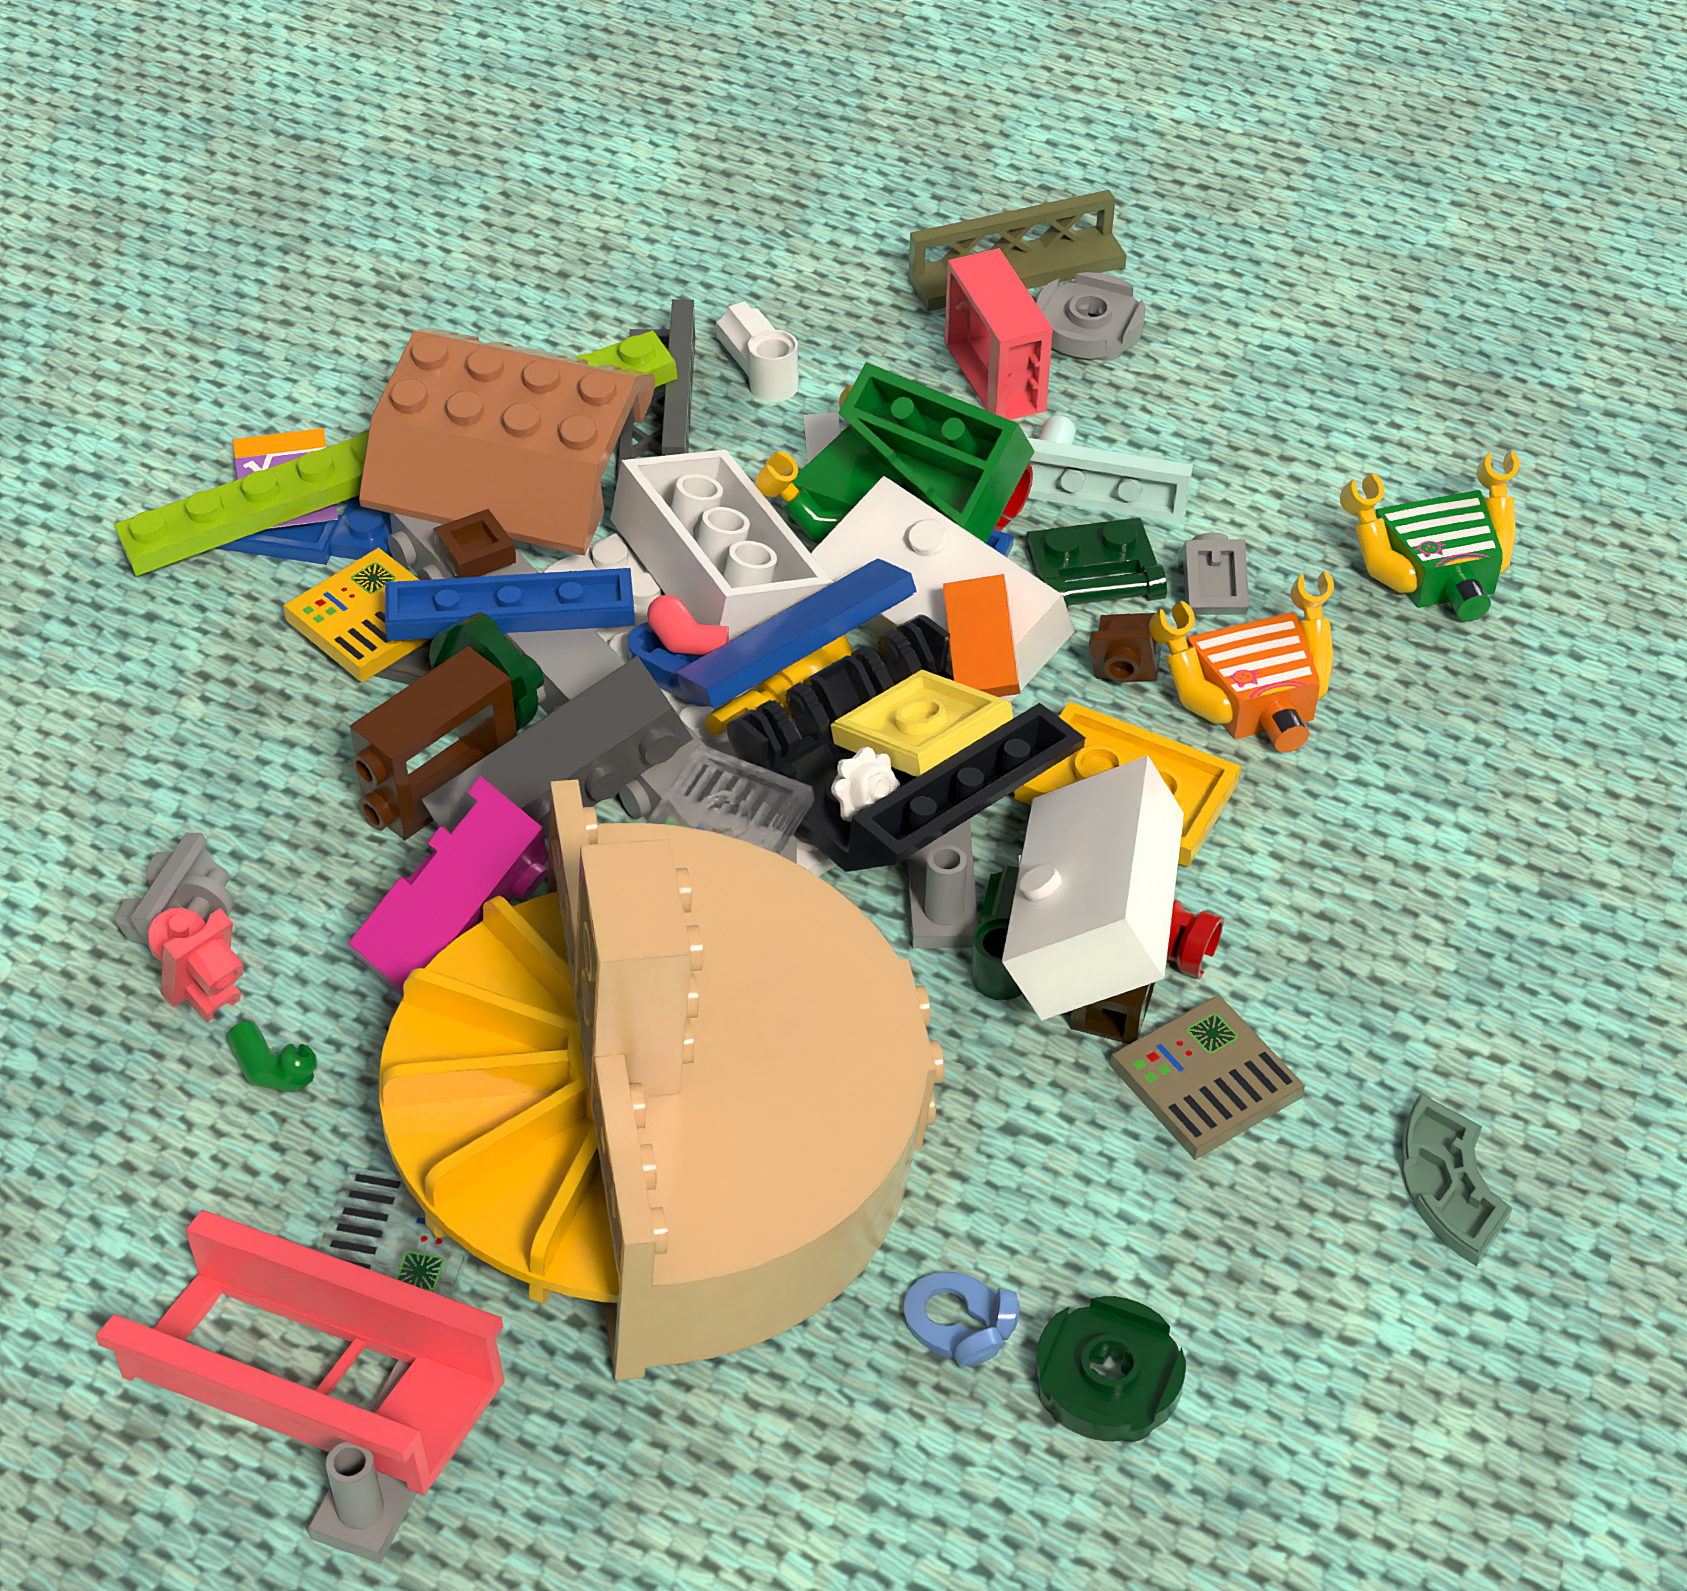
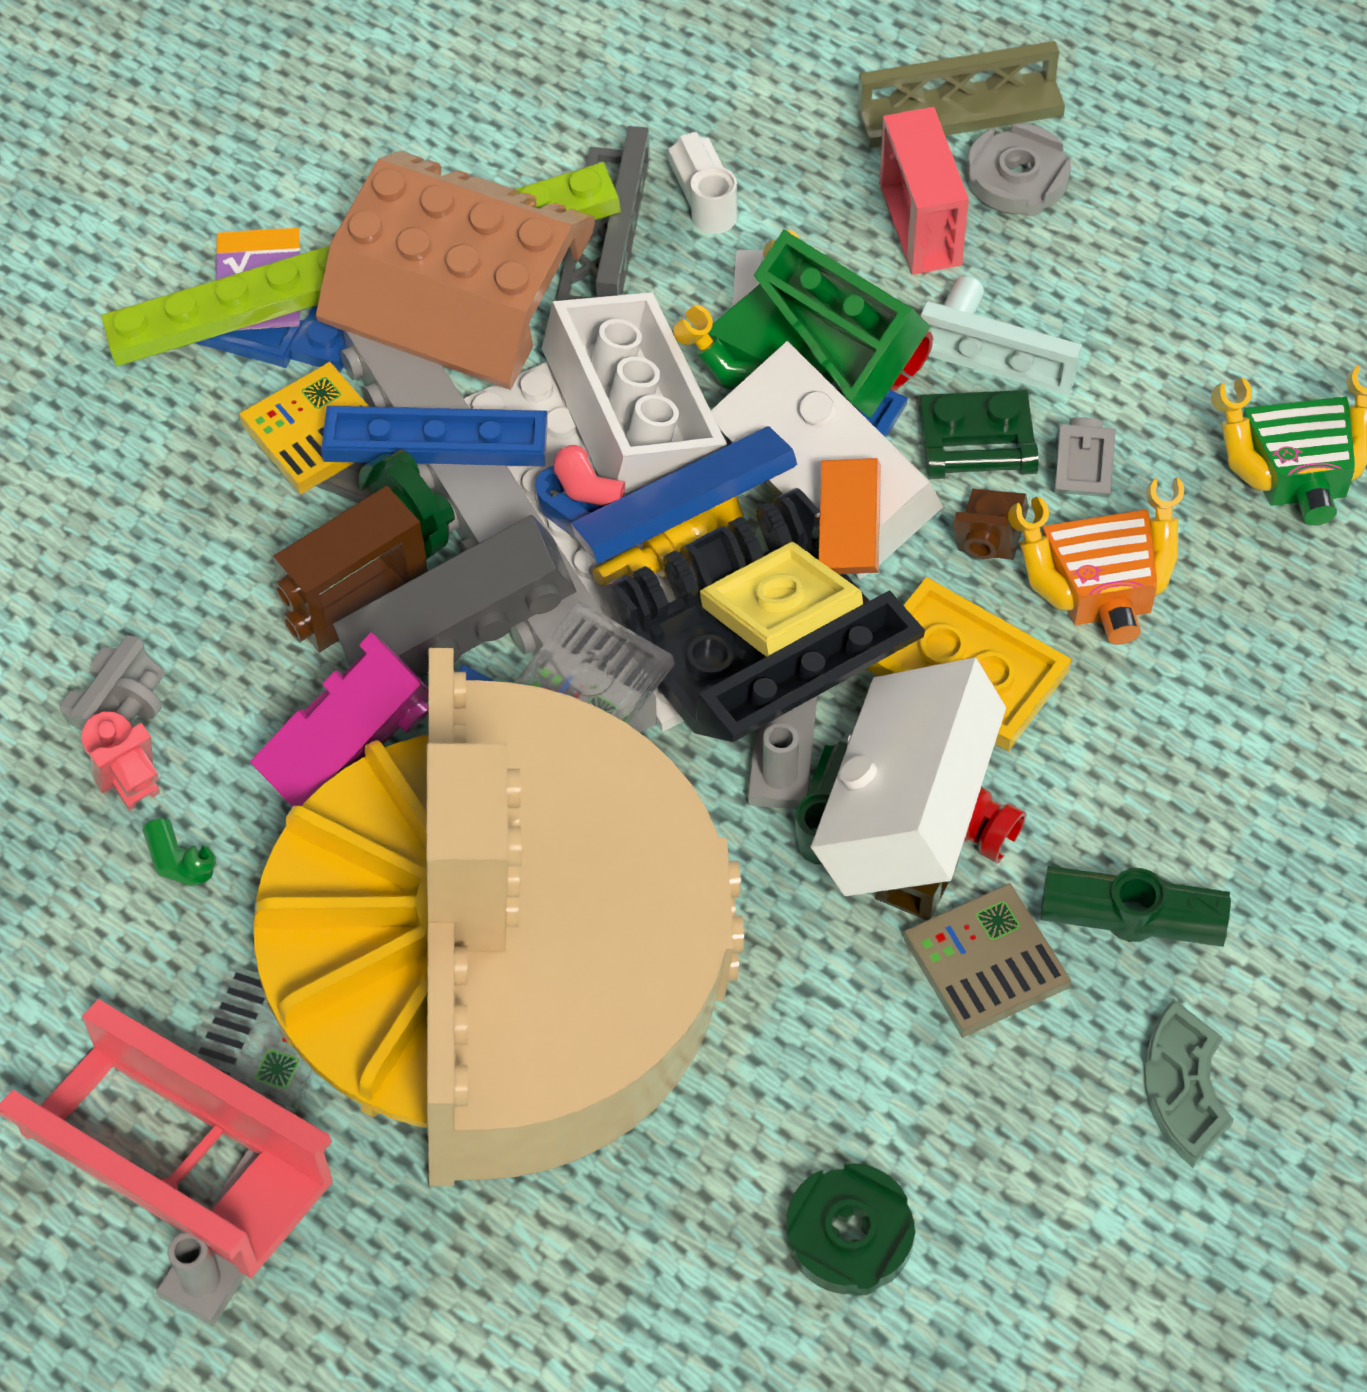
camera: 10 degrees right, 10 degrees up
(475, 545) = (411, 375): reddish brown plate -> none
(863, 781) = (718, 657): white plant -> none
(995, 1310) = (760, 1160): medium blue piece -> none
(1360, 1001) = (1171, 911): none -> dark green piece

